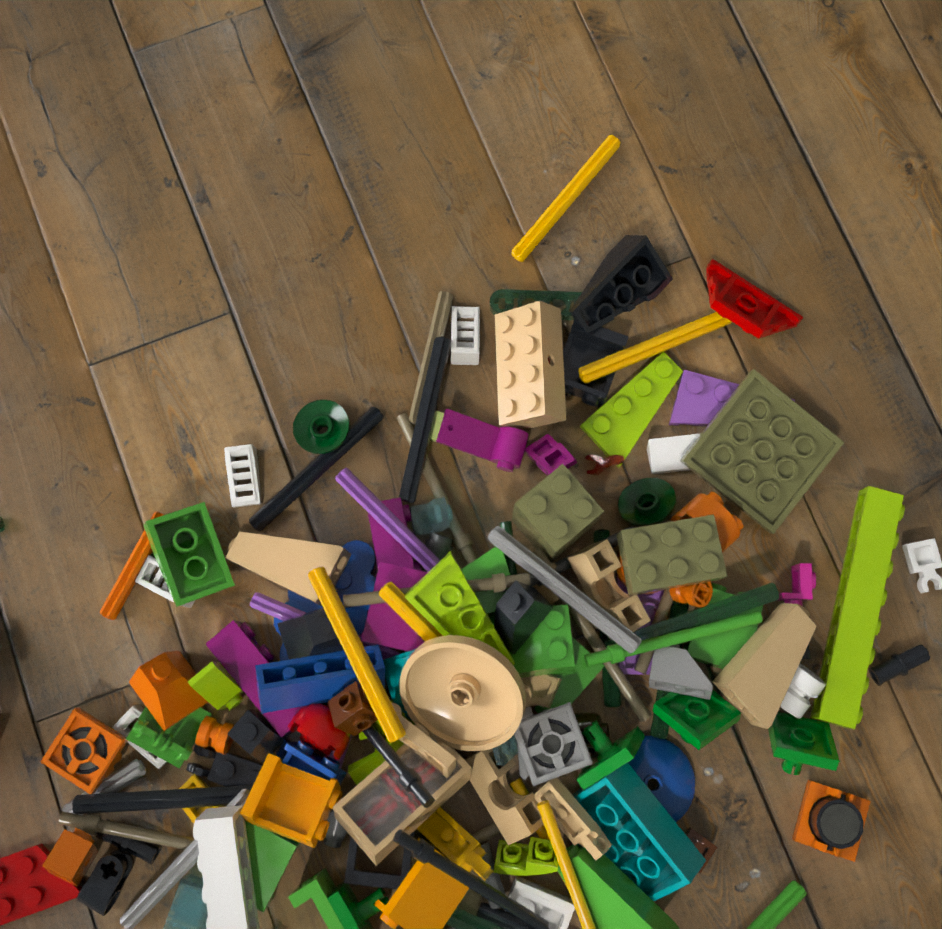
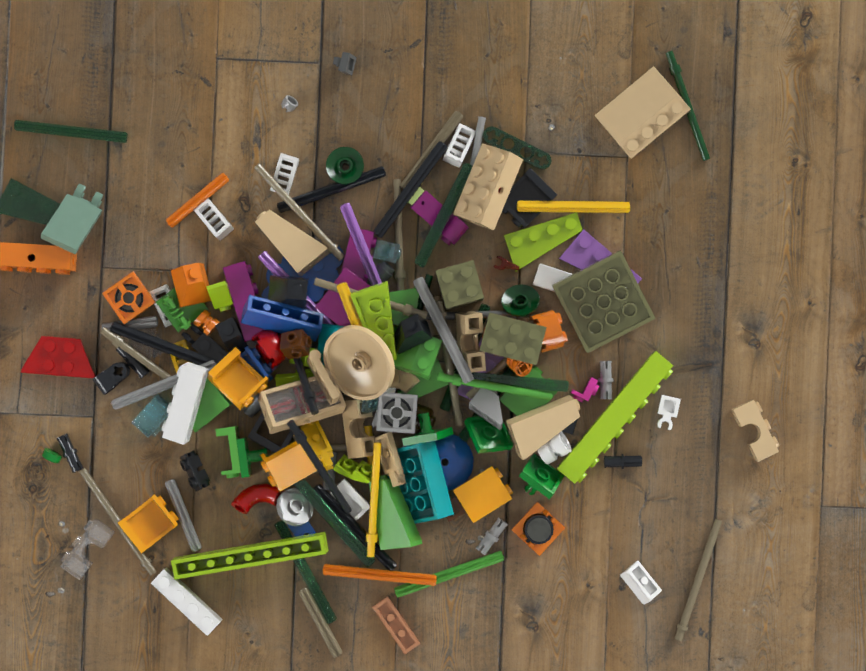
camera: 20 degrees right, 10 degrees up
(71, 856) = (100, 354): orange brick -> none
(188, 554) = (234, 209): bright green slope -> none
(211, 379) = (289, 103): none -> light grey hinge
(264, 293) = (345, 63): none -> dark grey tile
(352, 546) = (299, 212): none -> dark tan bar
(356, 654) = (309, 313): yellow axle -> none
(487, 319) = (478, 138): none -> light grey bar
(487, 435) = (443, 215): none -> clear green axle
(549, 454) = (475, 246): magenta slope -> none
(565, 198) = (564, 83): yellow axle -> none
(623, 280) = (571, 157): black wedge -> none
(687, 187) = (642, 112): none -> tan slope
(700, 122) = (675, 70): none -> dark green bar
(730, 806) = (483, 493): none -> light orange panel
(746, 304) = (641, 205): red wing -> none
(771, 864) = (491, 536): none -> light grey pin
(816, 556) = (605, 380): none -> light grey pin

